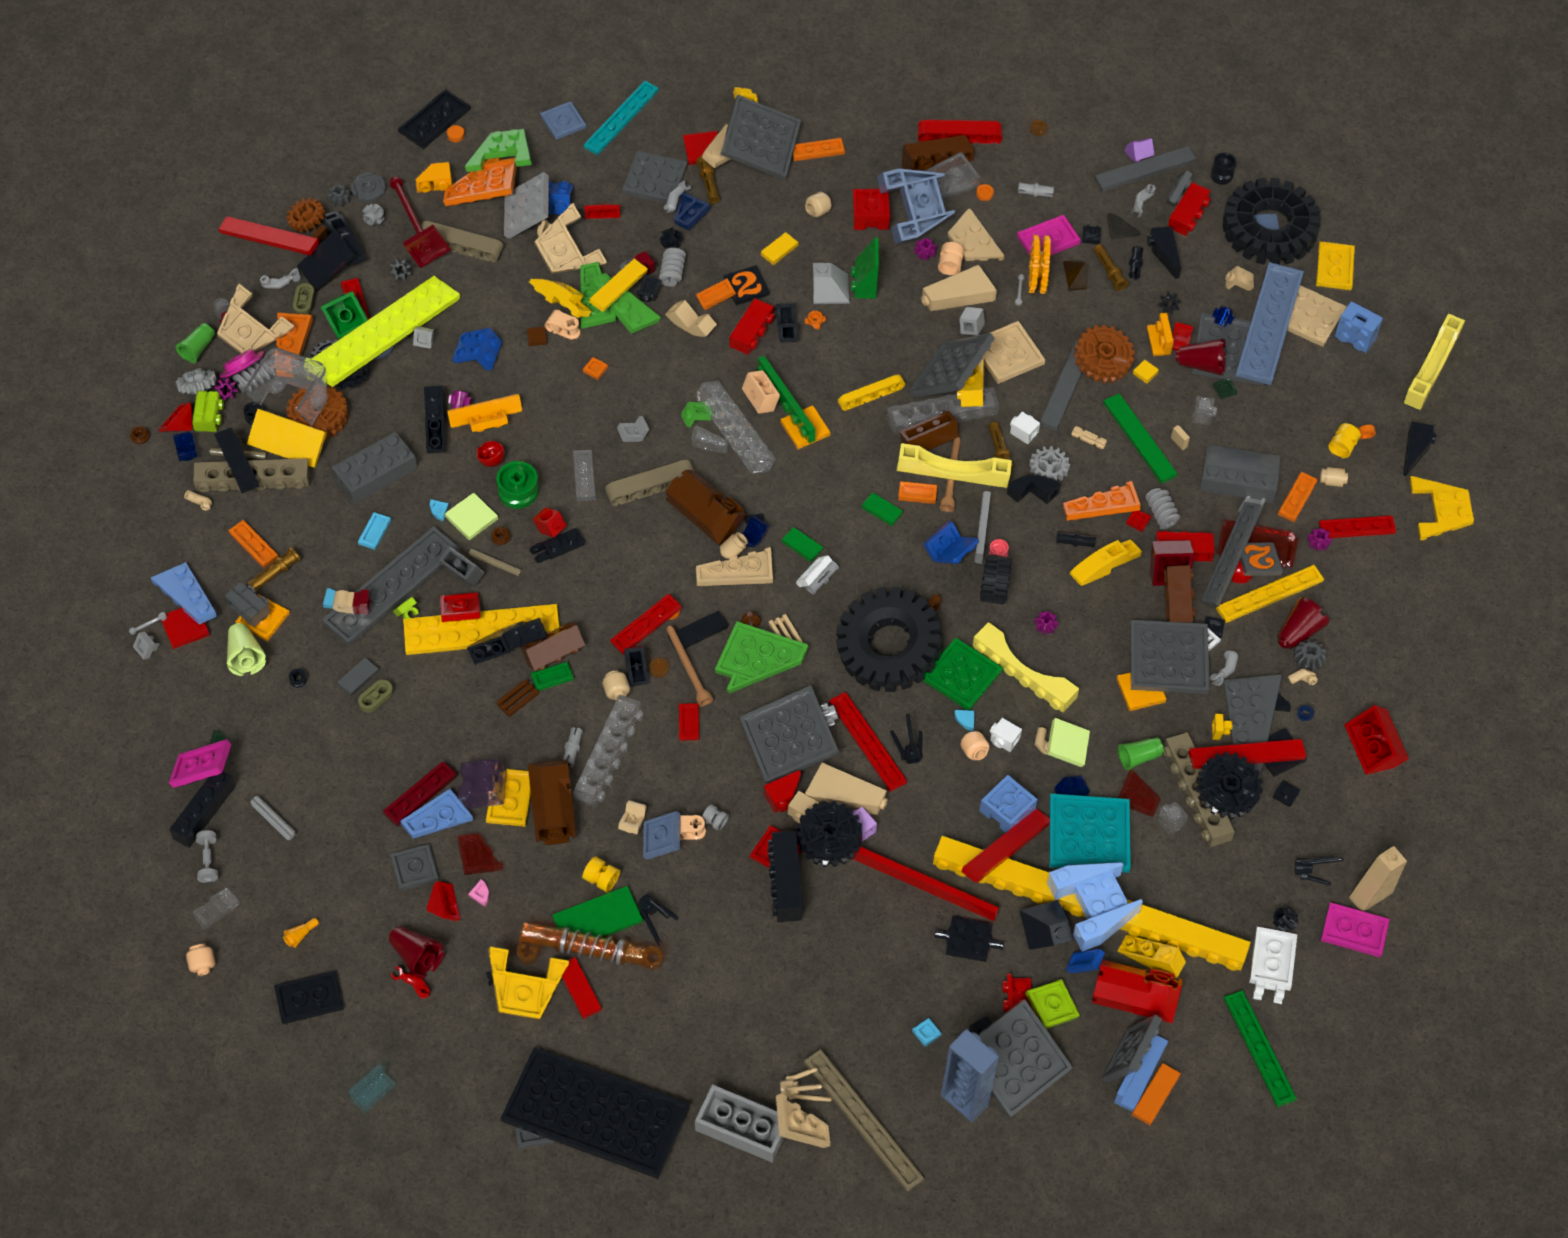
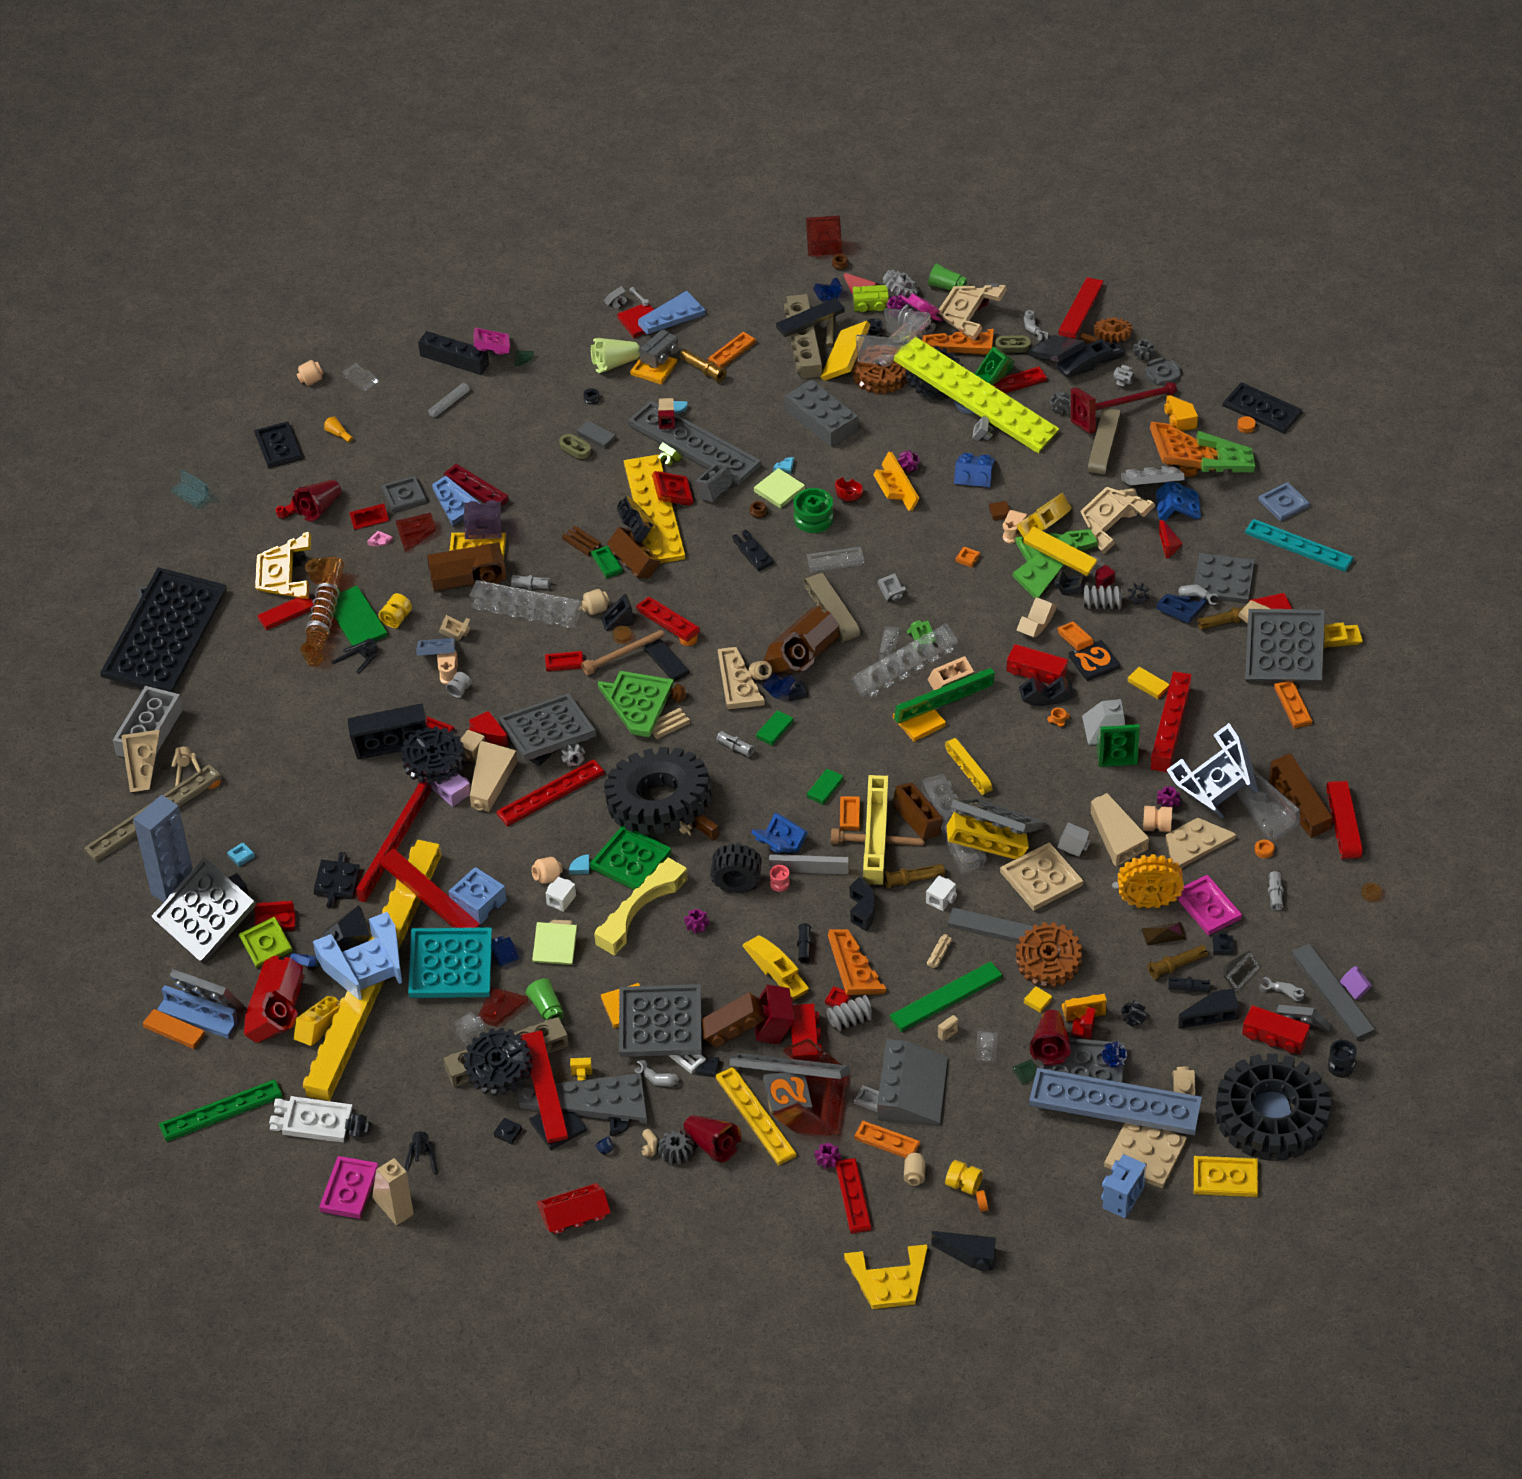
camera: 90 degrees right, 10 degrees down
(105, 441) = (823, 235): none -> clear red slope
(203, 501) = (774, 305): tan arm -> none
(207, 874) = (408, 363): light grey wheel -> none
(374, 531) = (755, 426): medium azure tile -> none
(434, 419) = (876, 450): black slope -> none
(495, 562) = (724, 519): dark tan bar -> none
(549, 522) = (772, 536): red brick -> none
(813, 571) = (740, 735): white tile -> none
(818, 204) = (1211, 706): tan head -> none
(832, 233) = (1171, 721): none -> red brick
(870, 209) = (1203, 743): red piece -> none
(912, 753) = (536, 823): black plant -> none
(1049, 463) = (886, 918): light grey gear -> none
(1434, 362) = (1124, 1278): light yellow arch -> none

